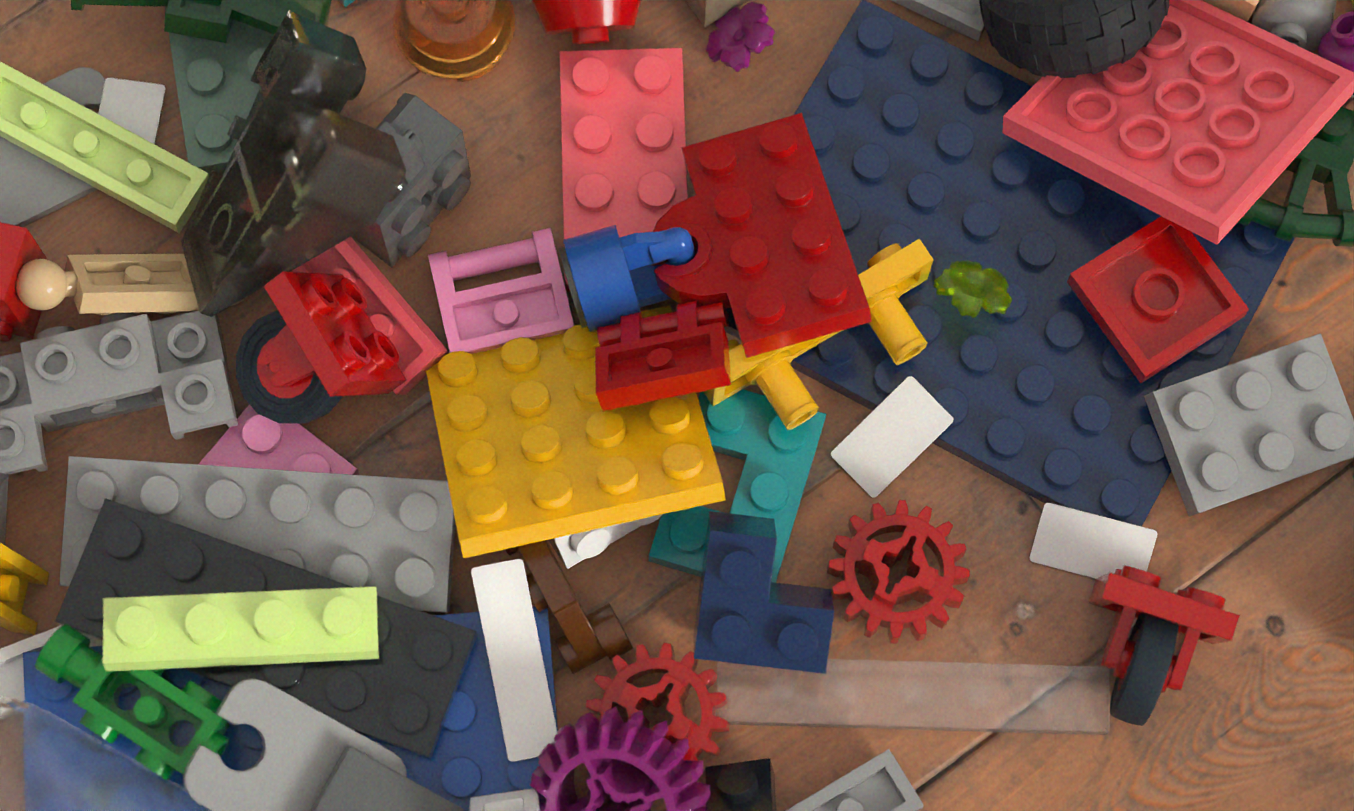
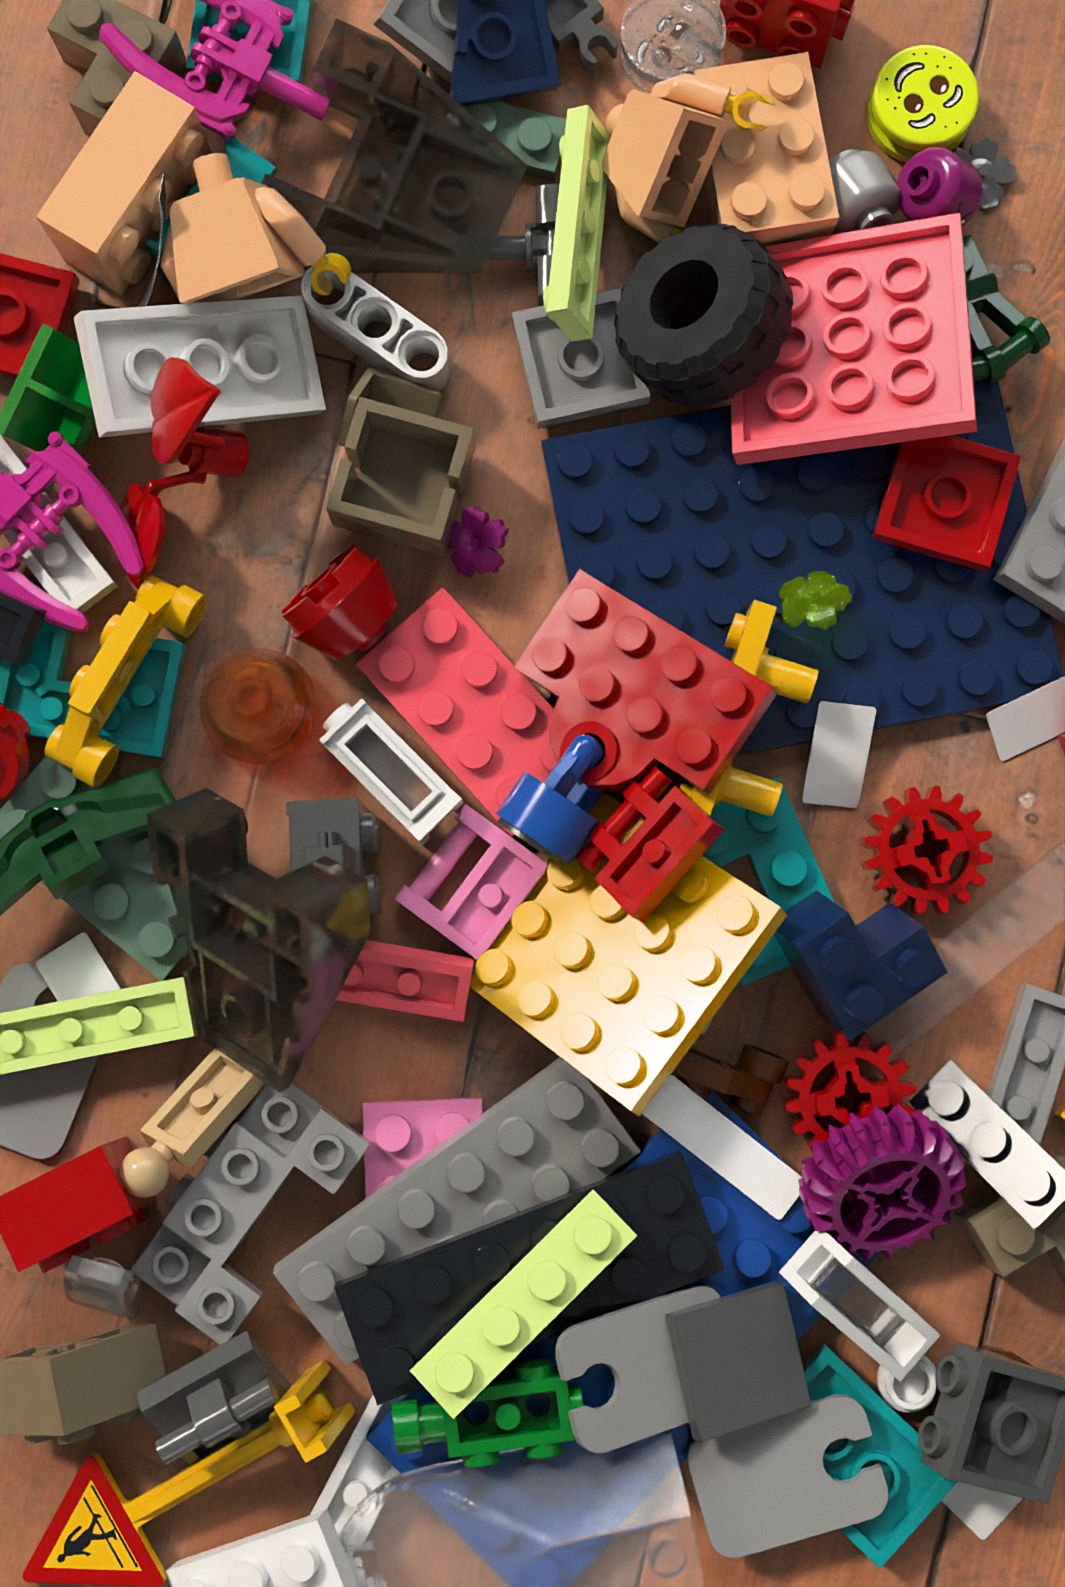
camera: 40 degrees left, 10 degrees up
(313, 350) = (387, 1047): red plate -> none
(512, 149) = (389, 769): none -> white window

